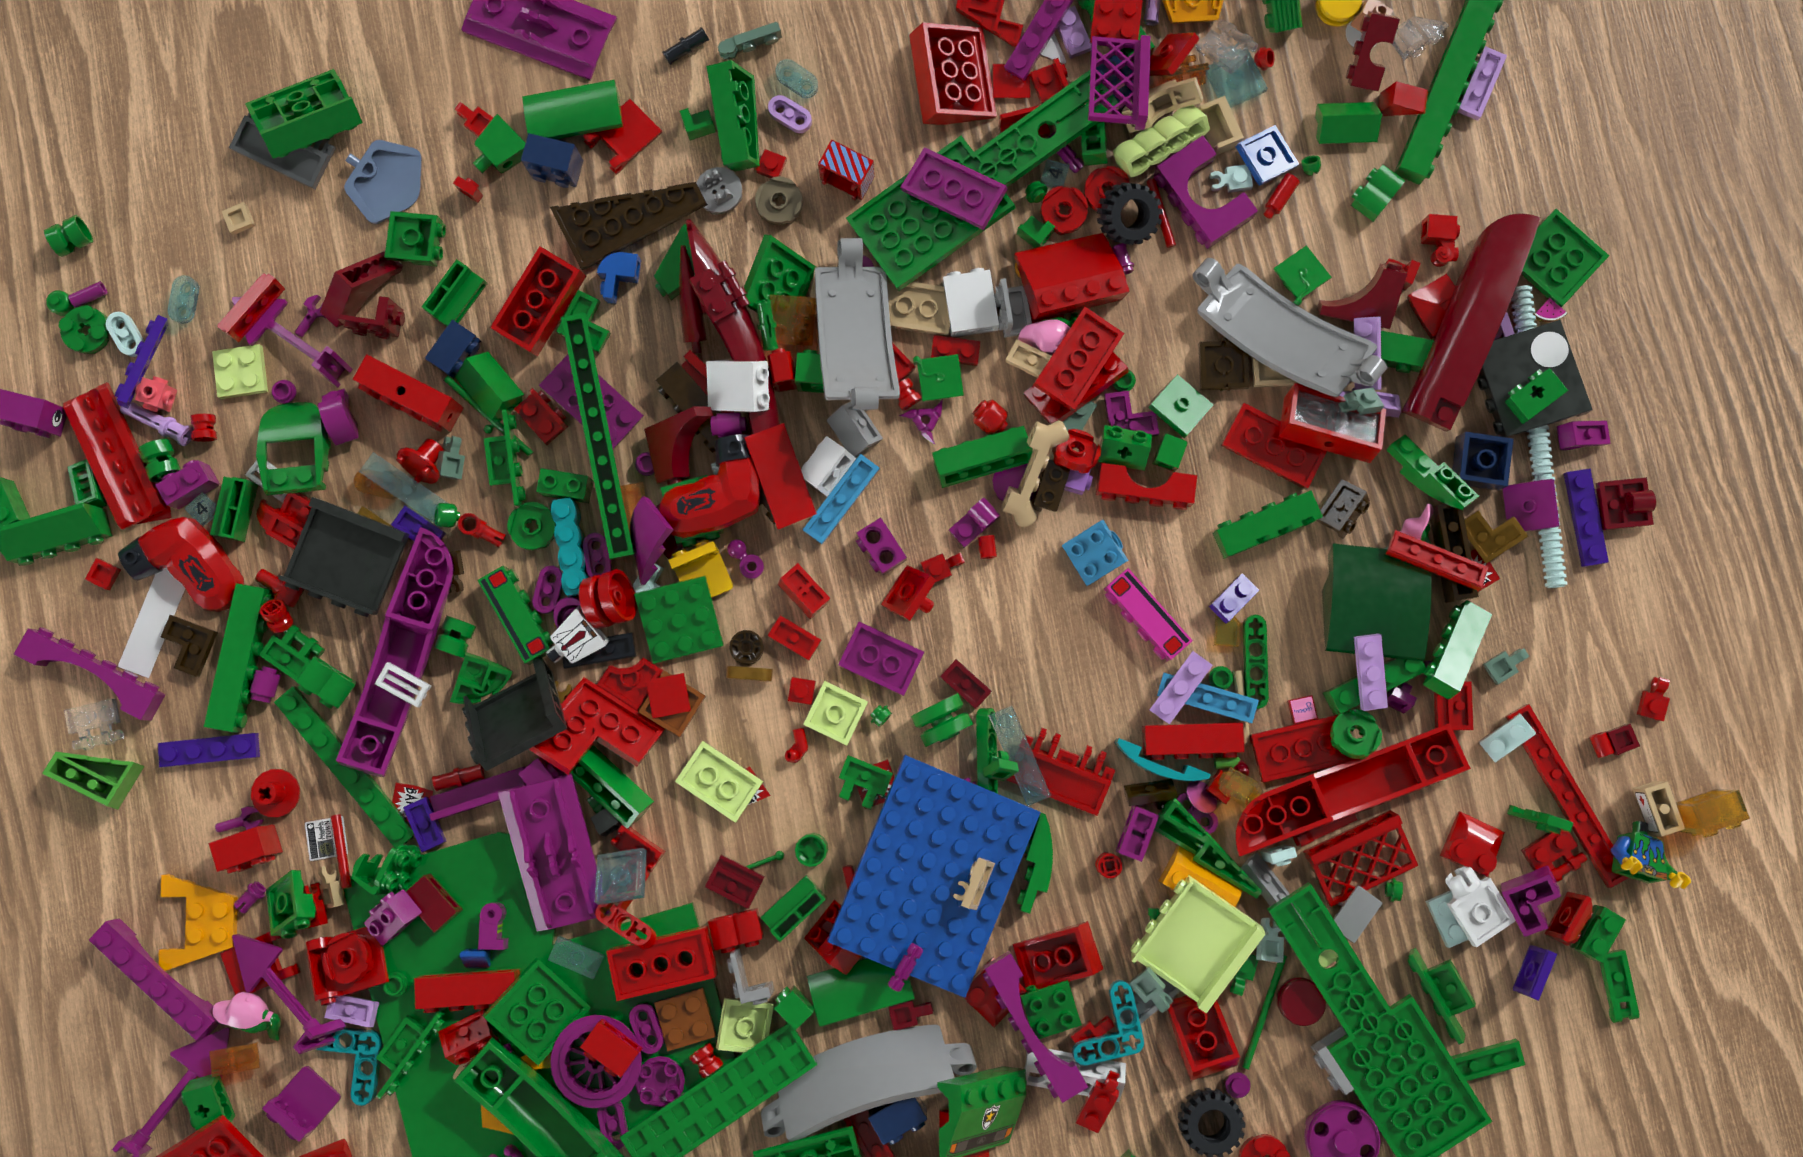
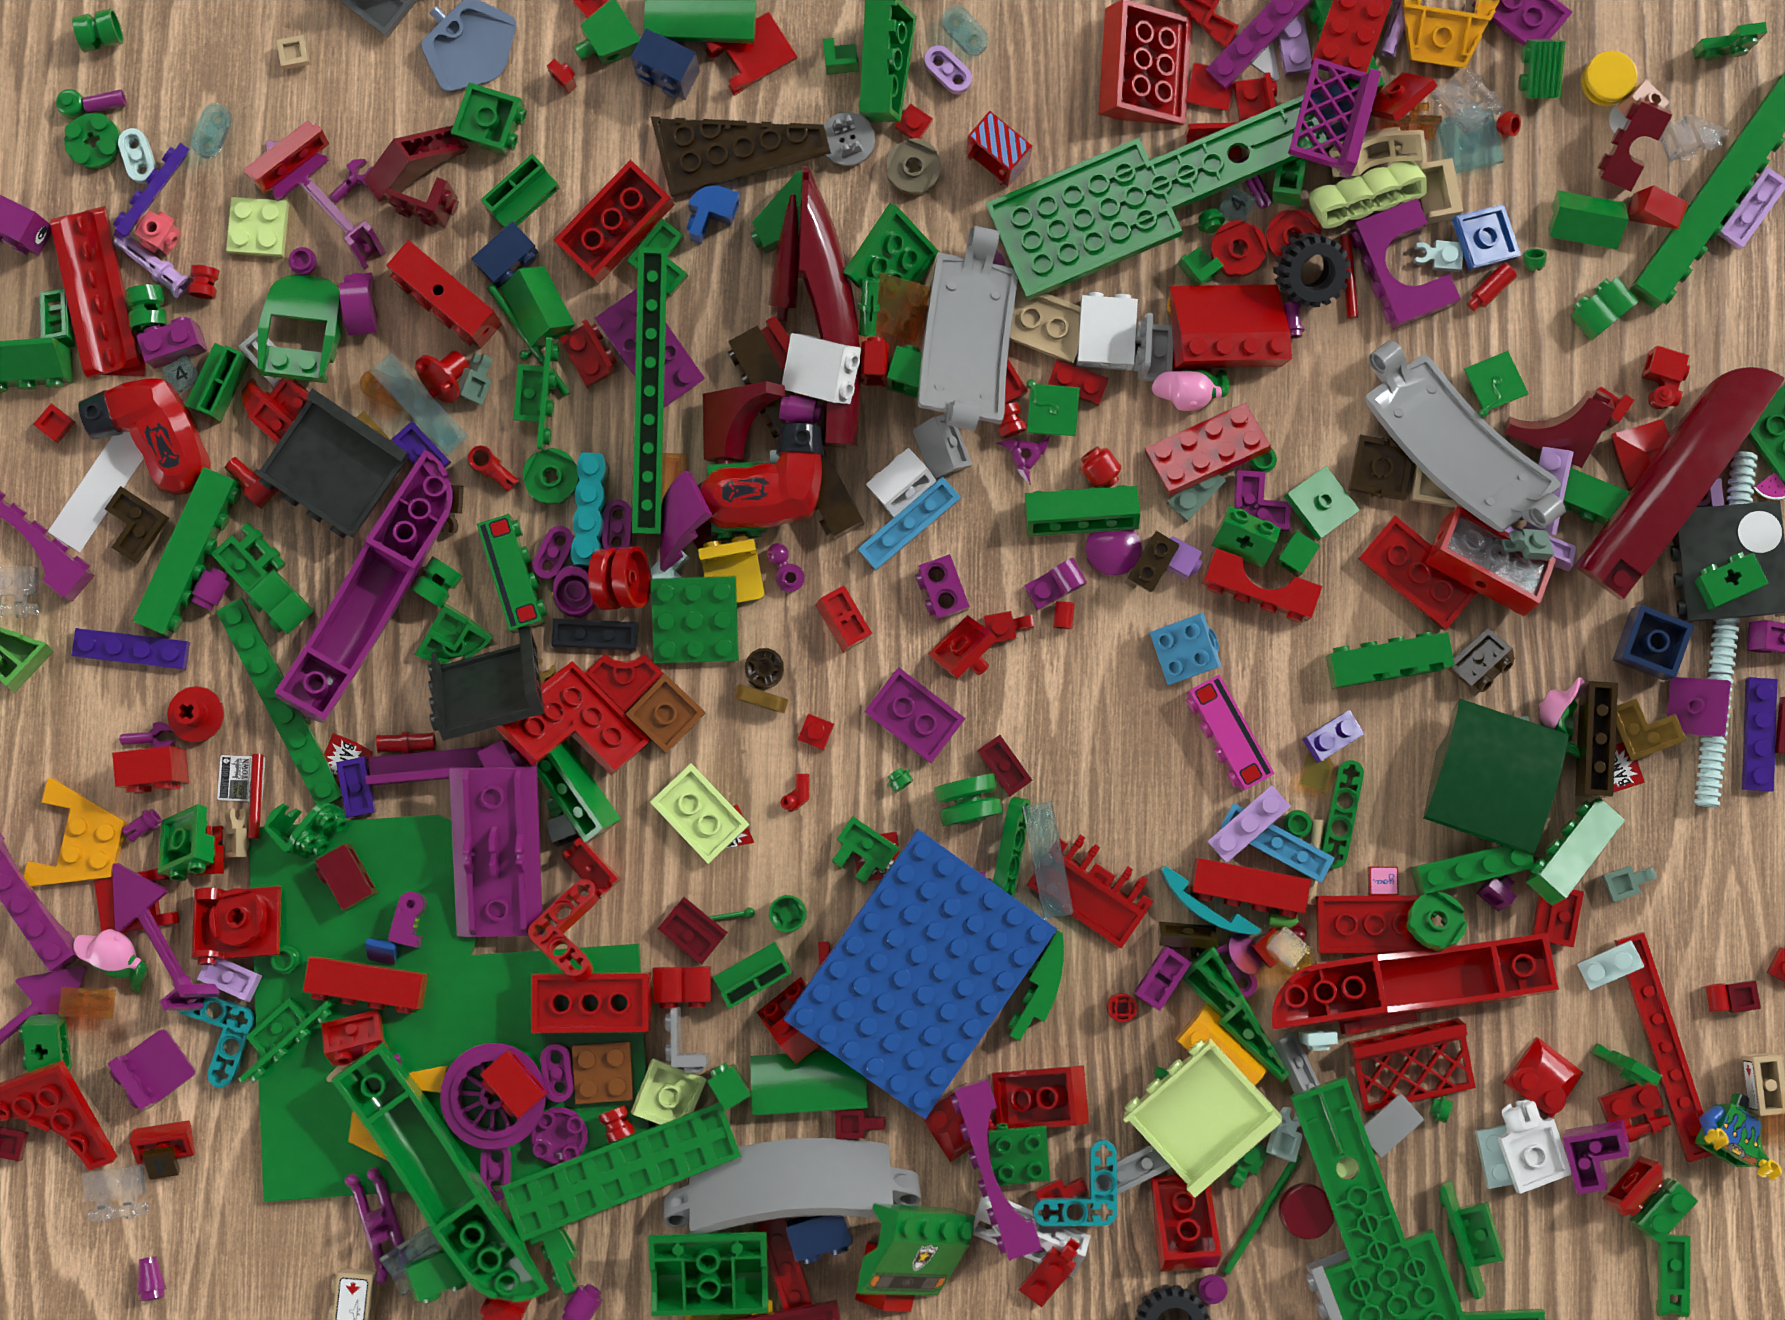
camera: 10 degrees right, 0 degrees up
(276, 616) = (240, 514): red wheel -> none
(391, 916) = (299, 882): magenta brick -> none
(420, 694) = (386, 639): white tile -> none
(446, 515) = (457, 442): green piece -> none
(536, 1010) = (438, 1023): green plate -> none
(564, 485) = (598, 438): green brick -> none
(576, 638) = (573, 614): torso -> none
(576, 957) = (495, 975): clear light blue plate -> none
(620, 876) = (566, 894): clear light blue plate -> none
(644, 464) = (694, 434): magenta plate -> none
(668, 695) = (663, 703): red sticker -> none
(713, 297) = (815, 259): dark red plate -> none
(780, 476) = (846, 481): red piece -> none
(794, 637) = (821, 669): red plate -> none
(835, 713) = (849, 765): yellowish green plate -> none
(905, 967) = (865, 1068): magenta axle -> none
(954, 188) = (1117, 197): magenta plate -> none
(980, 874) = (972, 984): tan plate -> none
(1000, 767) = (1023, 868): green tile -> none
(1027, 358) = (1163, 414): tan plate -> none
(1041, 439) = (1153, 506): tan plate -> none
(1078, 359) = (1216, 423): red plate -> none
(1078, 461) = (1190, 540): red plate -> none
(1149, 987) = (1136, 1155): sand green plate -> none
(1370, 672) = (1469, 854): lavender plate -> none
(1430, 478) = (1594, 653): green slope -> none
(1437, 560) = (1574, 744): red tile -> none
(1534, 972) = (1579, 1236): dark purple plate -> none

